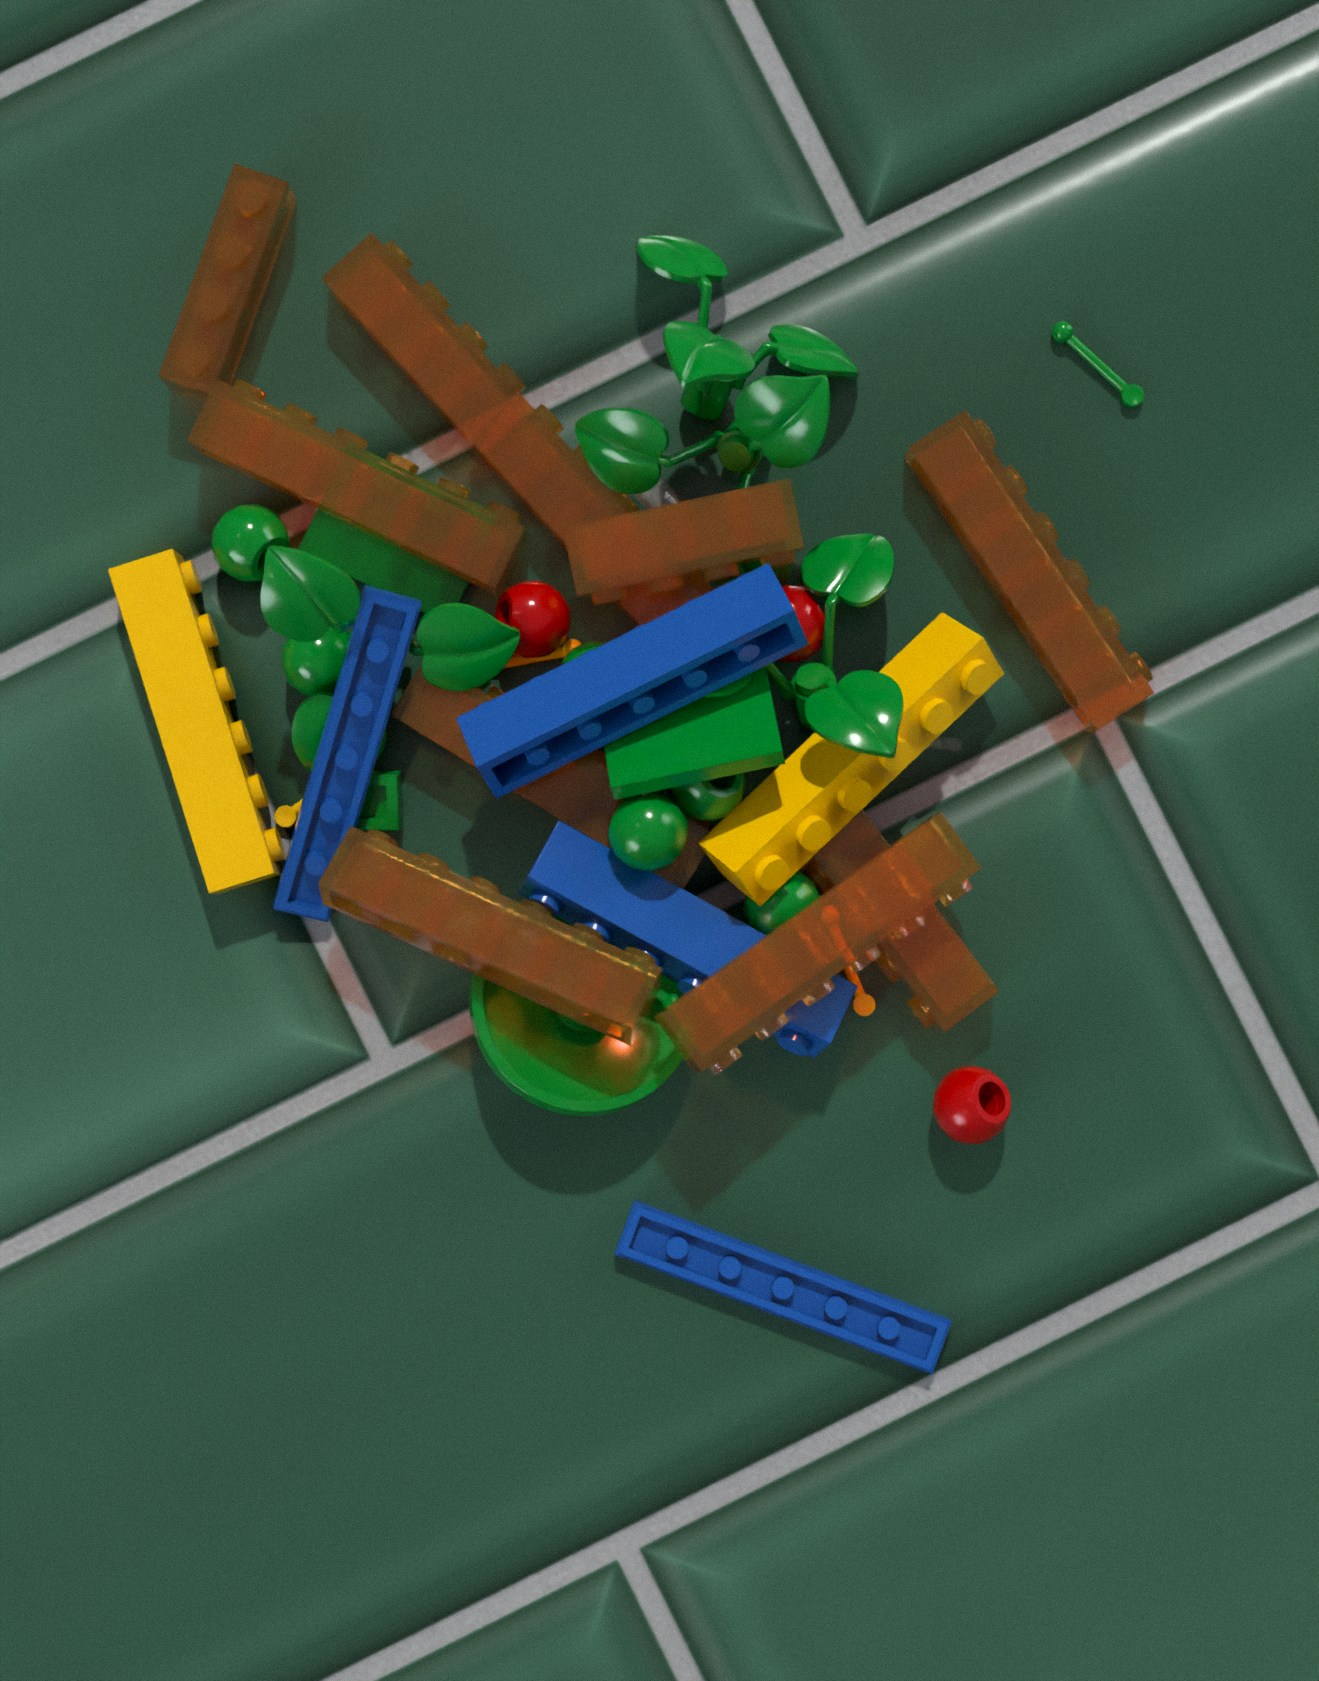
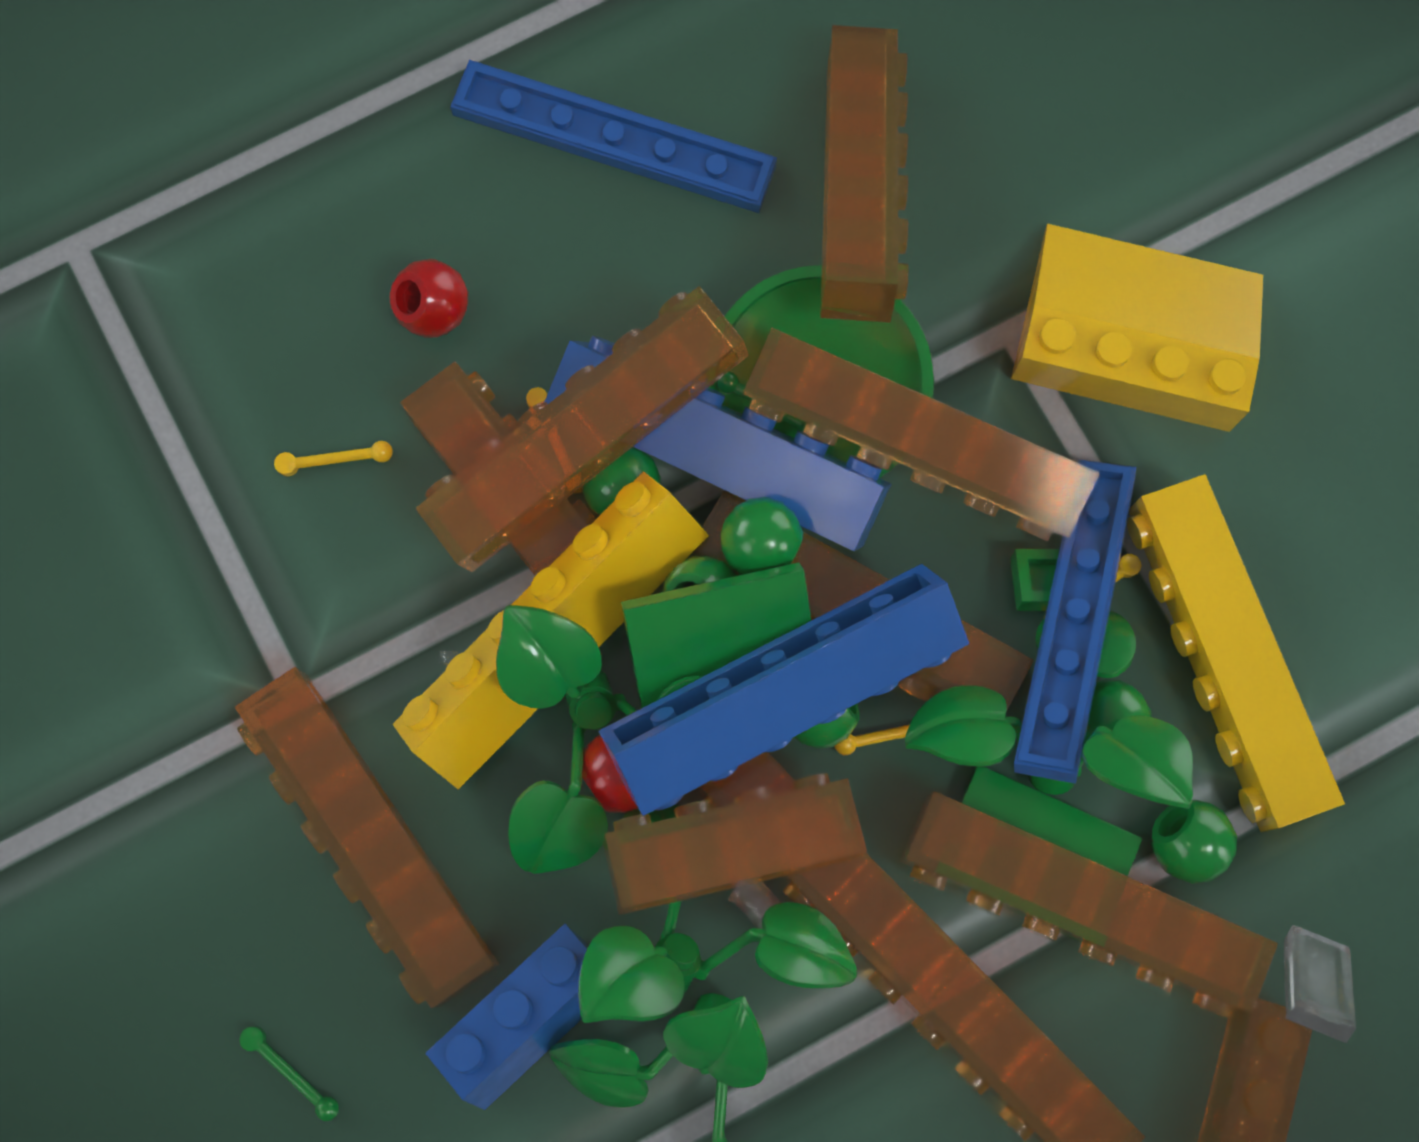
camera: 175 degrees right, 10 degrees down
(149, 408) = (1319, 984): none -> clear tile
(253, 1062) = (1142, 329): none -> yellow slope
(531, 1214) = (862, 176): none -> clear orange brick
(538, 614) = (887, 771): red piece -> none
(887, 399) = (514, 1022): none -> blue brick
(1111, 944) = (288, 464): none -> yellow hinge

